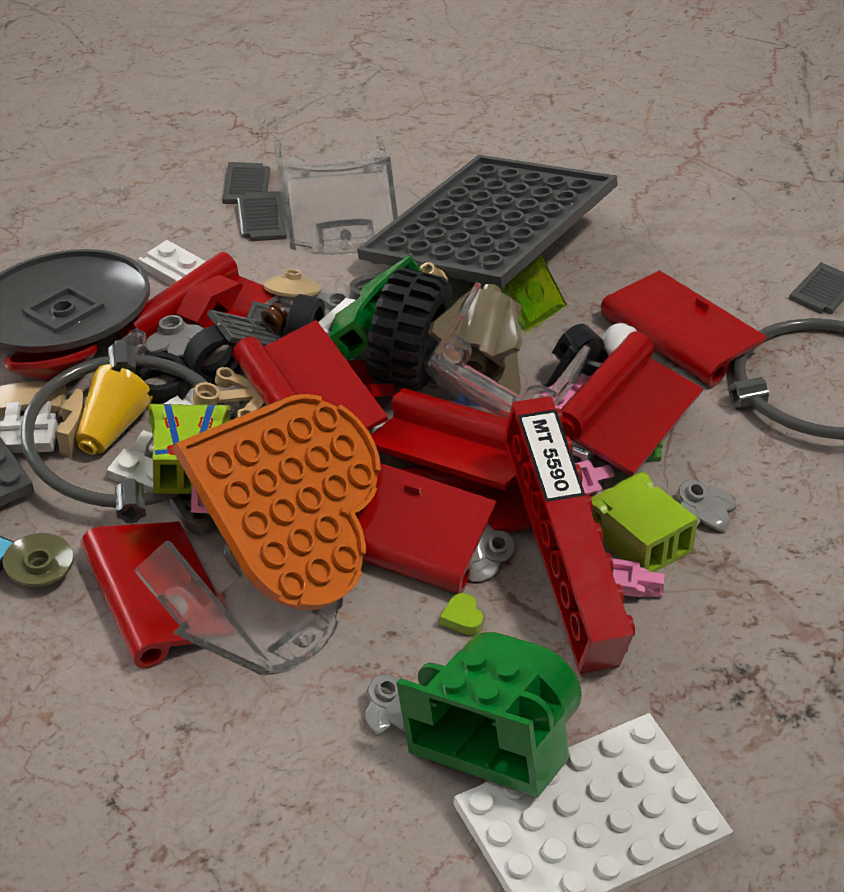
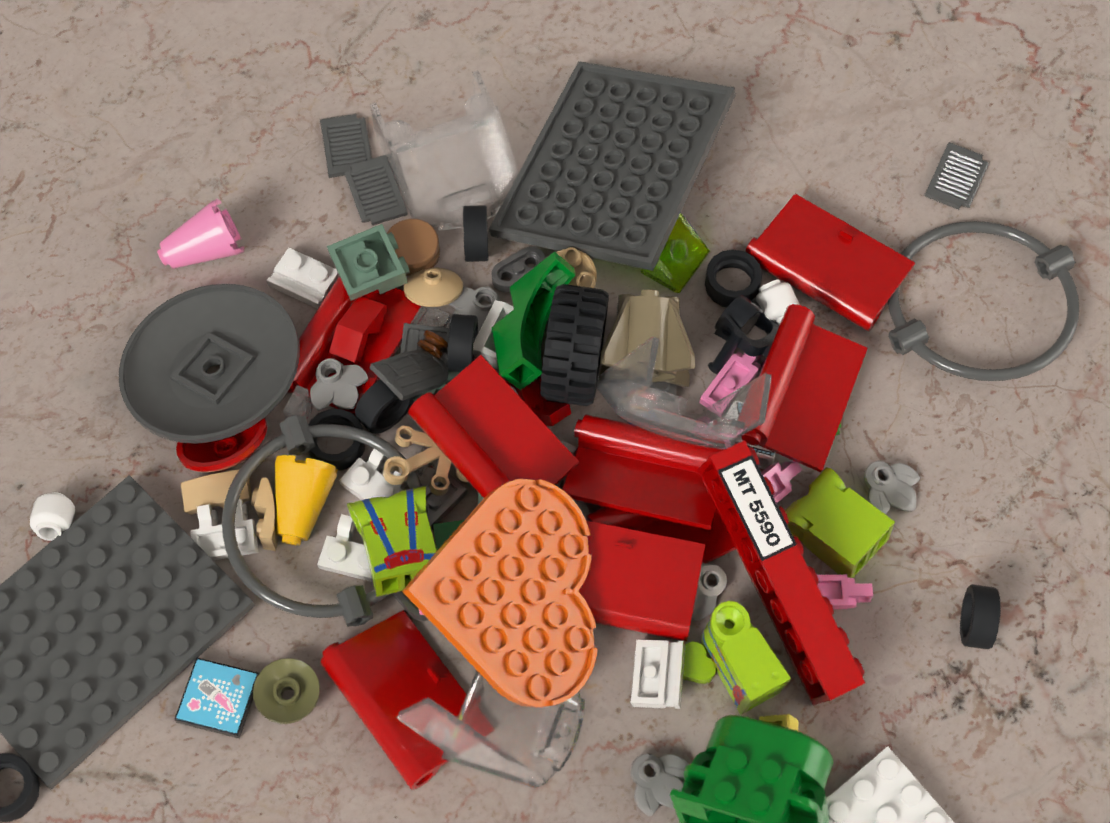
camera: 10 degrees left, 20 degrees up
(88, 217) = (201, 238): none -> bright pink cone
(237, 249) = (369, 262): none -> sand green plate
(281, 252) = (416, 243): none -> medium nougat head
(343, 249) = (475, 233): none -> black tyre
(420, 612) = (658, 674): none -> white plate
(510, 594) = (742, 657): none -> lime piece
(582, 310) = (733, 259): none -> black tyre
(773, 617) = (980, 617): none -> black tyre

